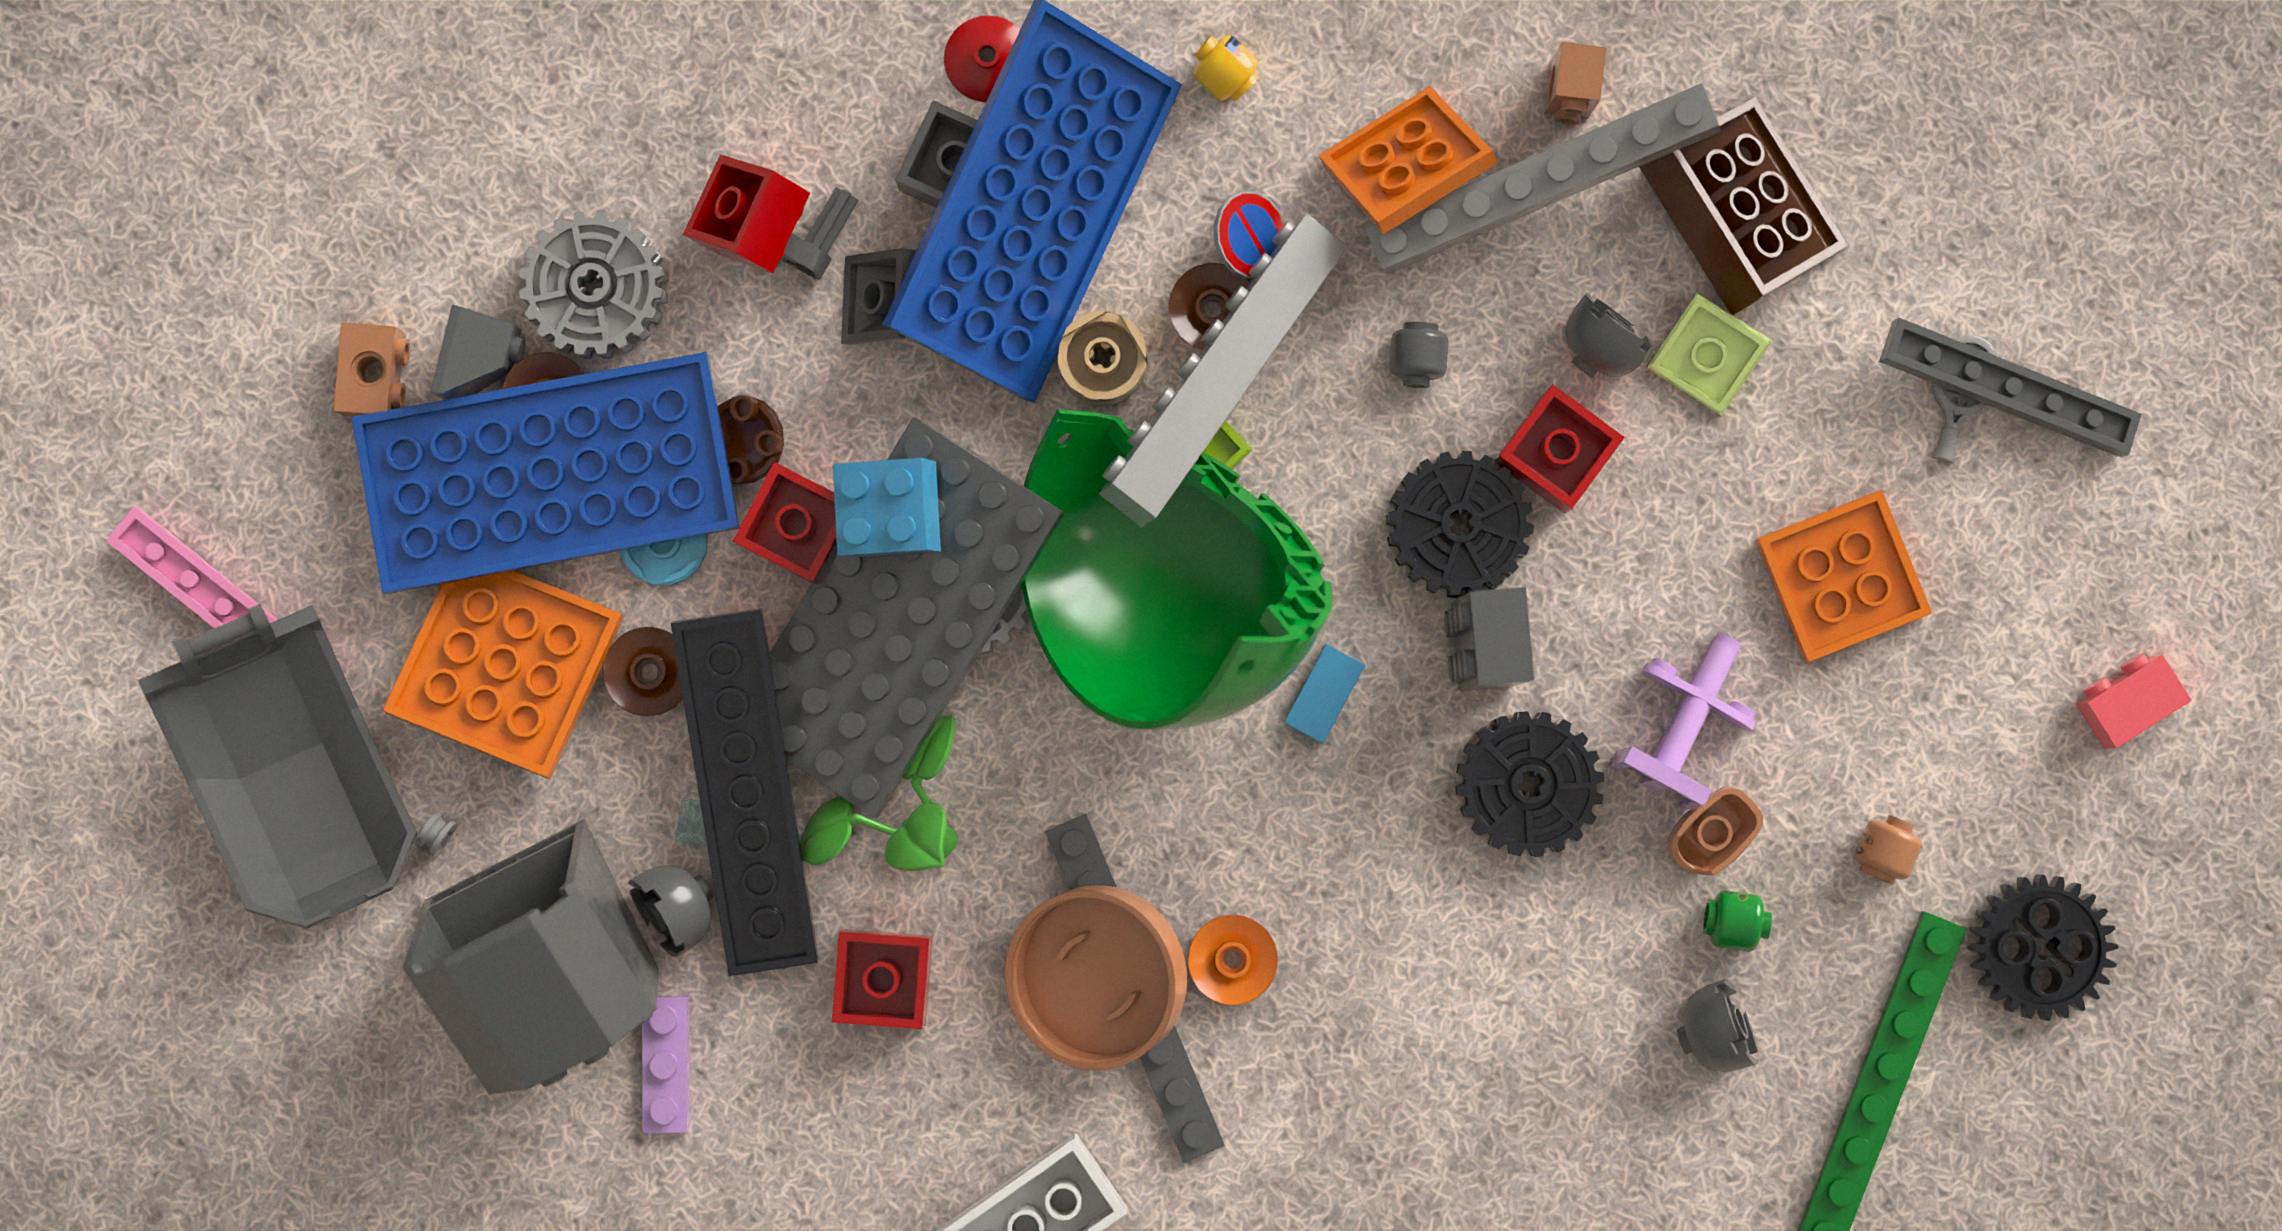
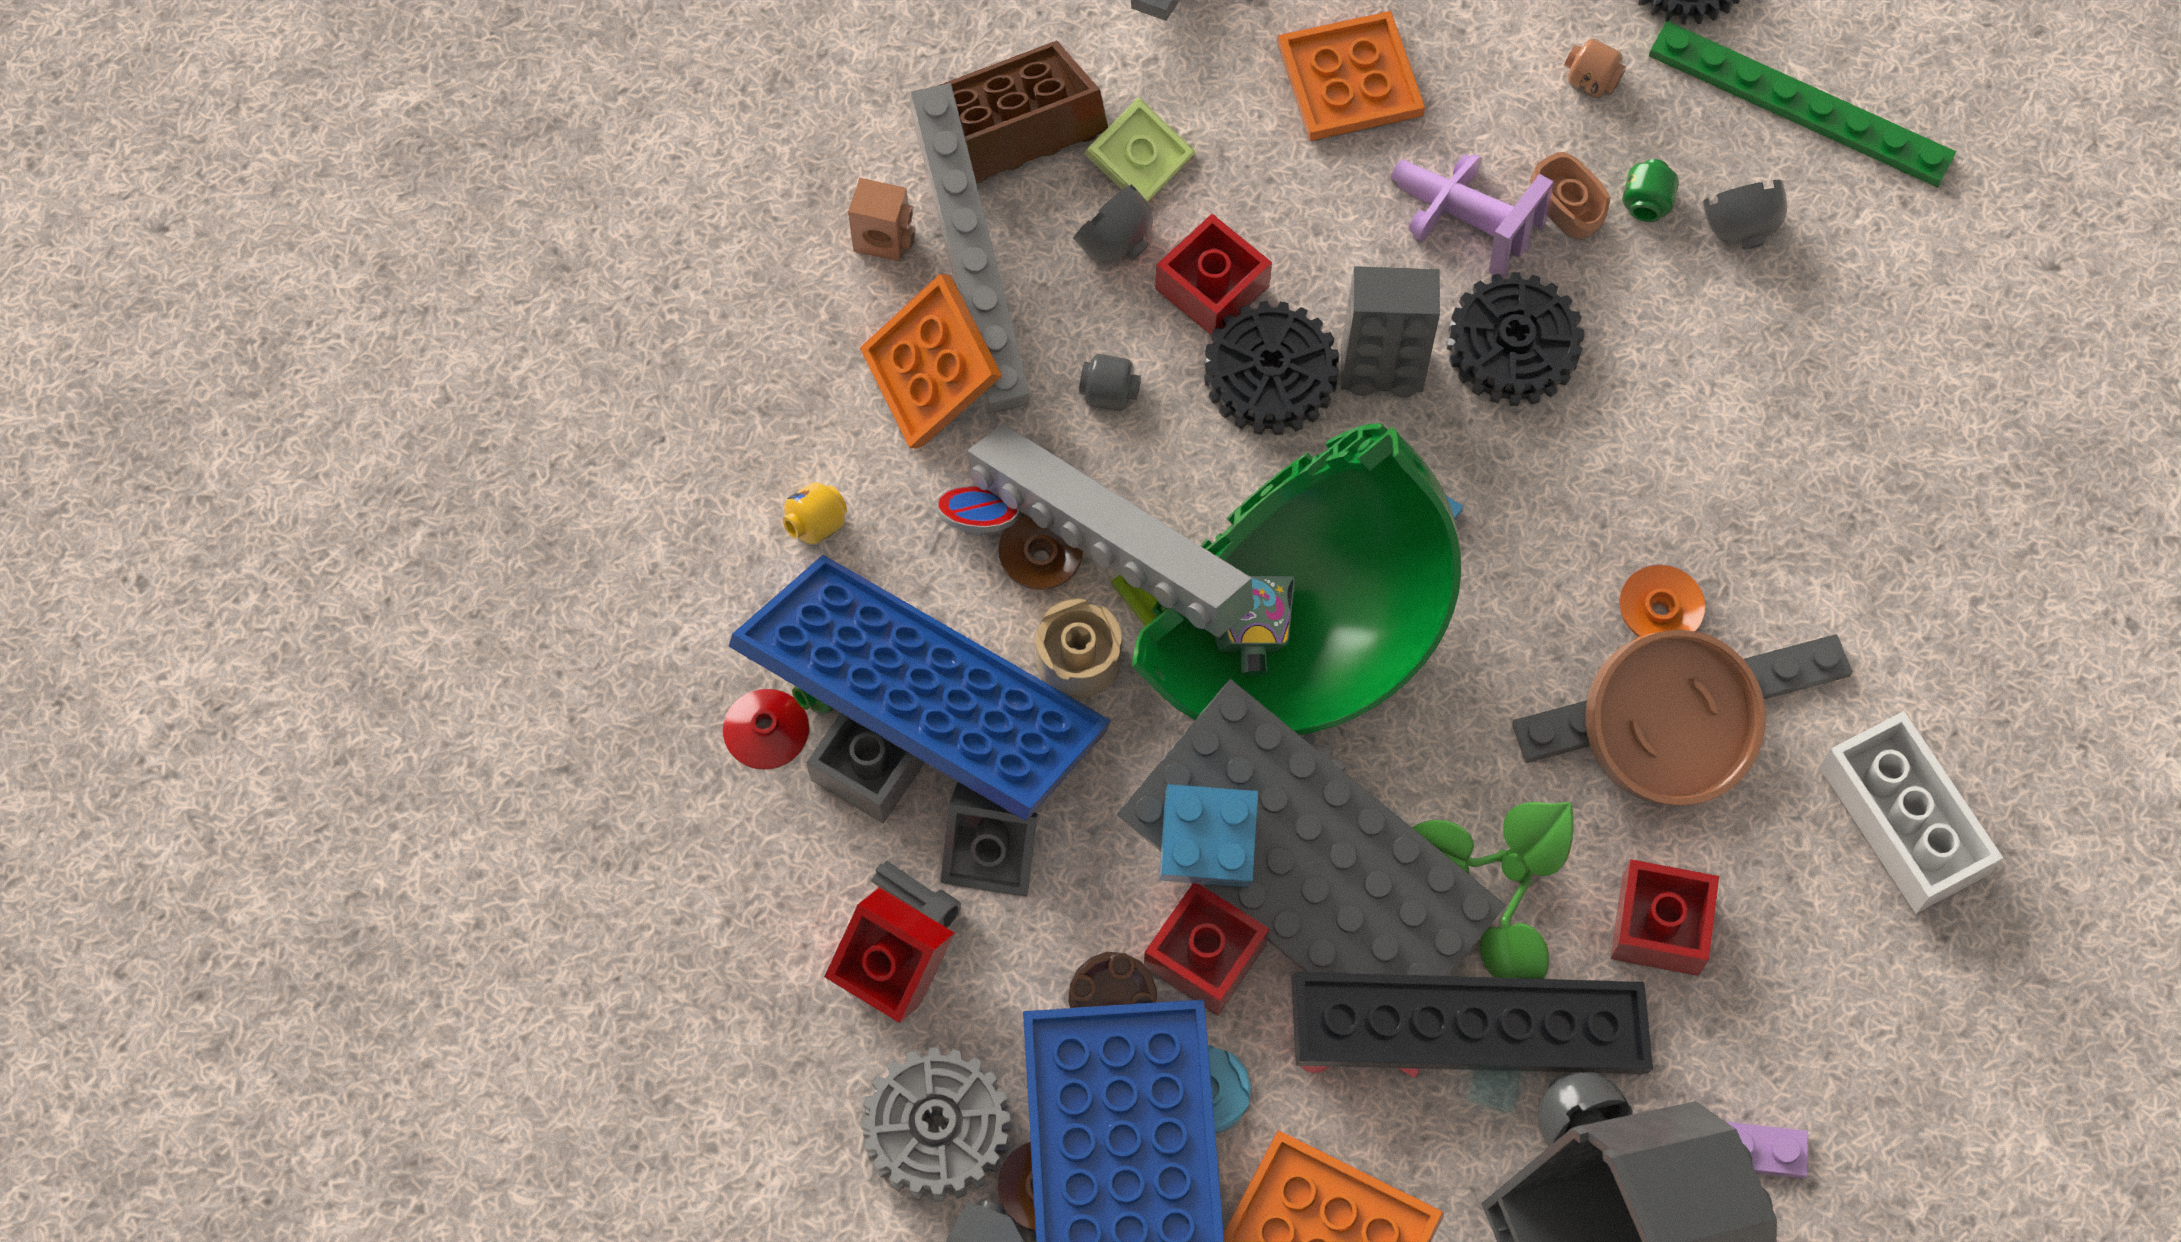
camera: 80 degrees left, 20 degrees down
(624, 672) = (1341, 1092): reddish brown dish -> none
(1162, 544) = (1264, 627): none -> torso

